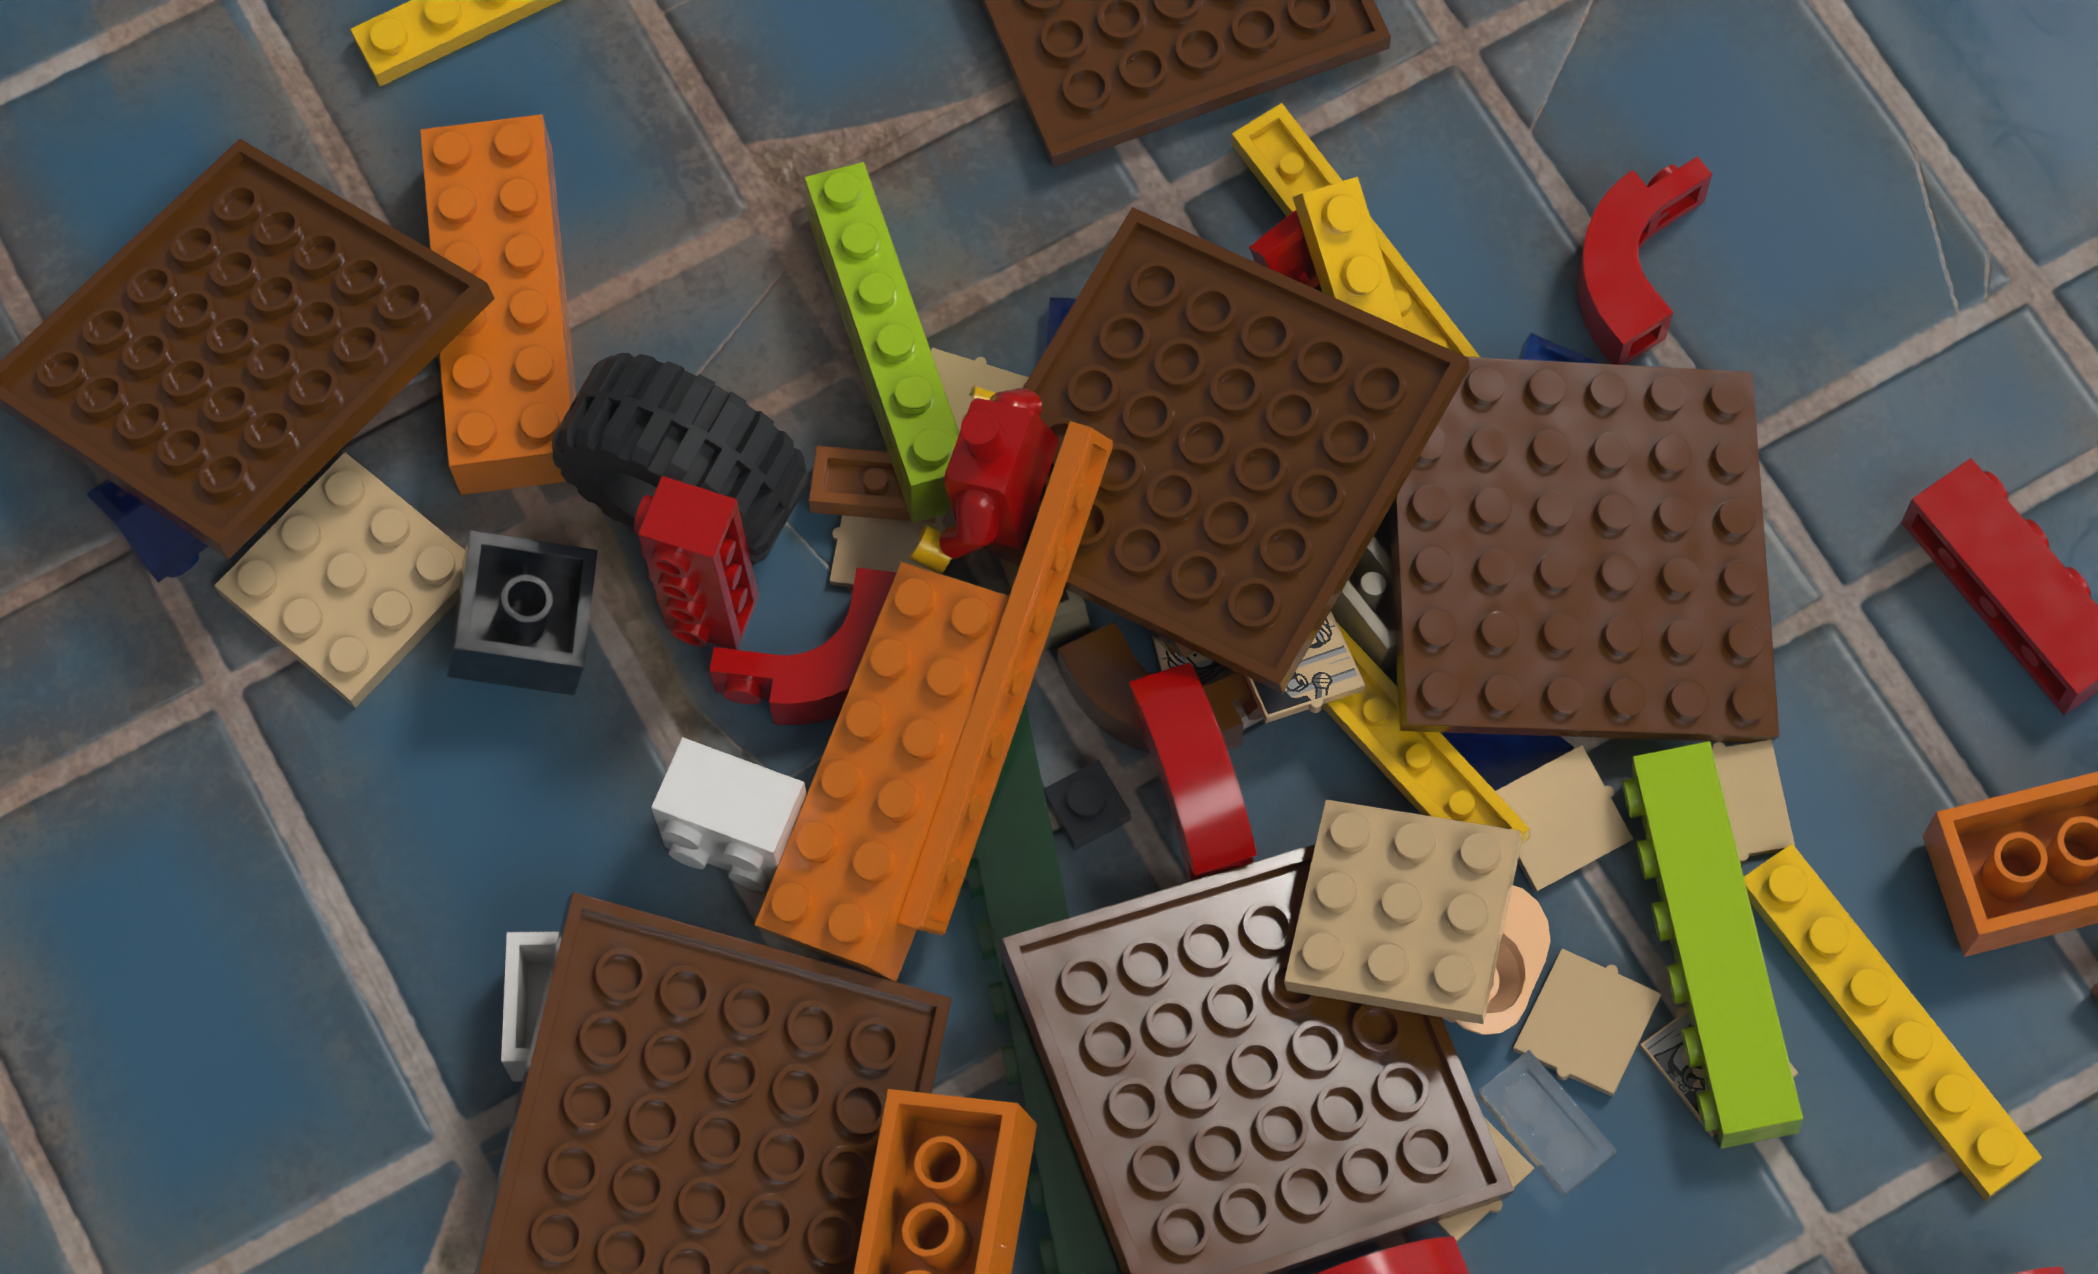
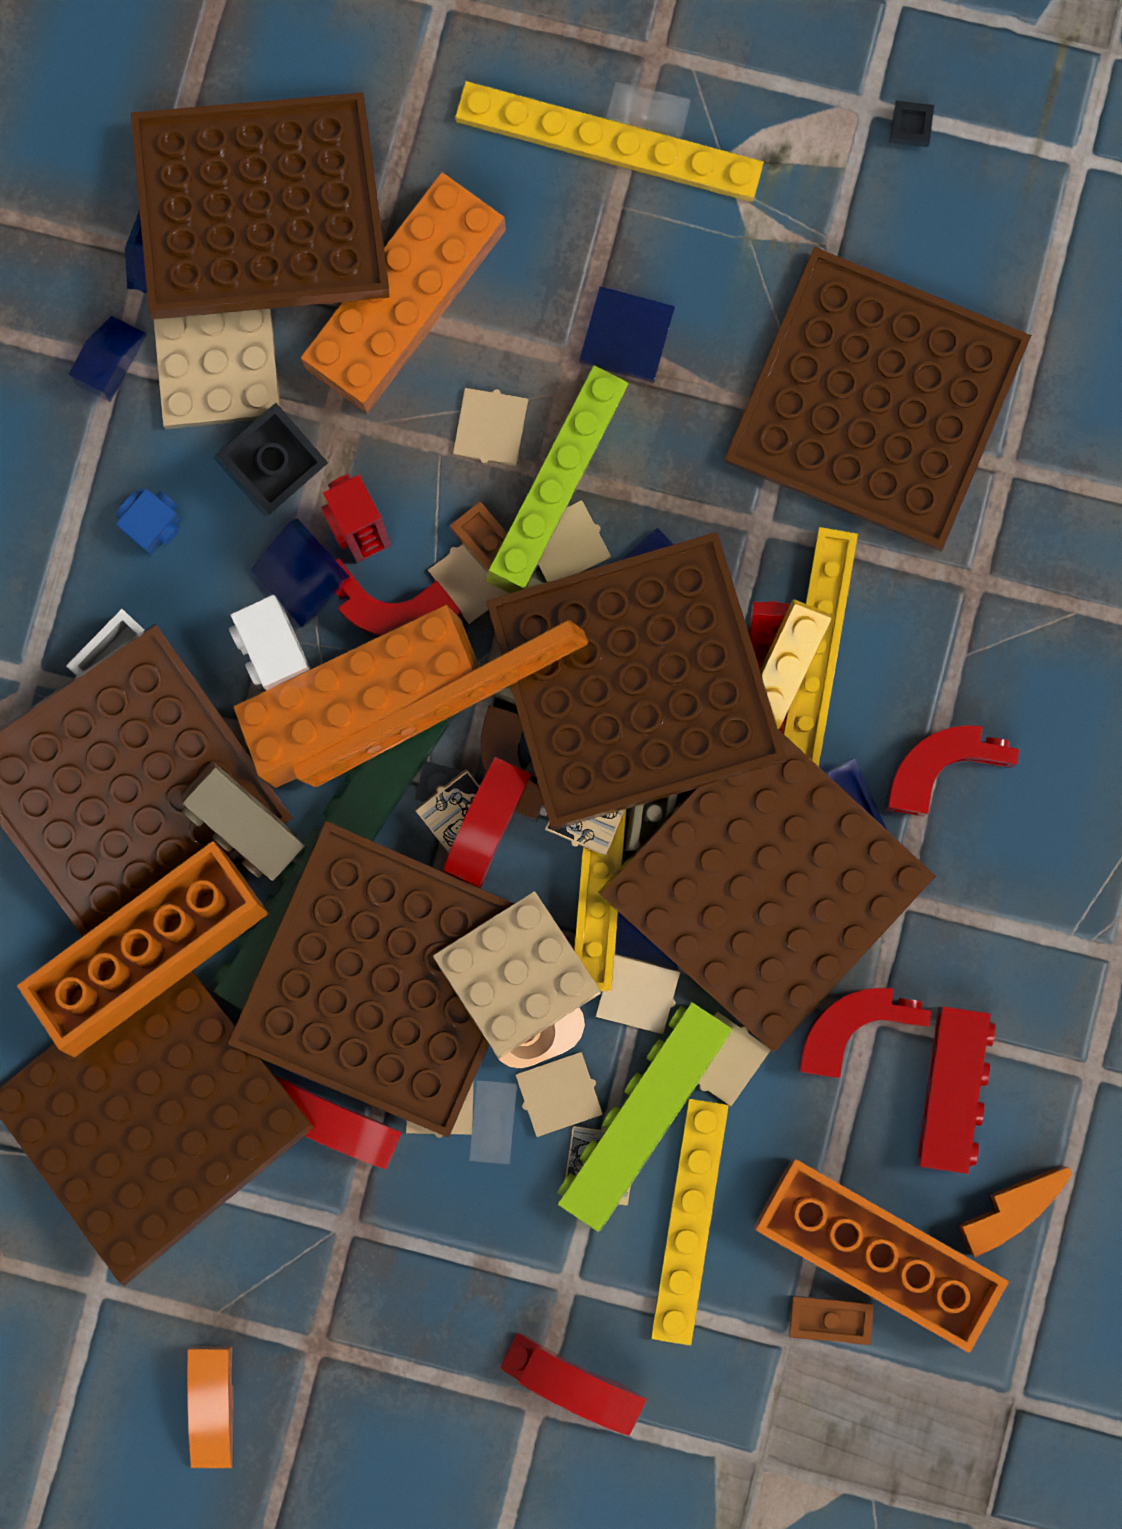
camera: 45 degrees right, 15 degrees up
(207, 688) = (107, 357): none -> clear blue slope
(436, 819) = (149, 519): none -> blue brick
(658, 420) = (397, 459): black tyre -> none
(679, 694) = (300, 572): none -> clear blue tile
(749, 357) = (490, 427): none -> tan piece
(803, 129) = (627, 334): none -> clear blue tile
(896, 1045) = (240, 822): none -> dark tan brick
(992, 476) = (524, 603): red torso -> none
(1133, 812) = (448, 807): none -> piece
(1817, 650) = (829, 1033): none -> red arch

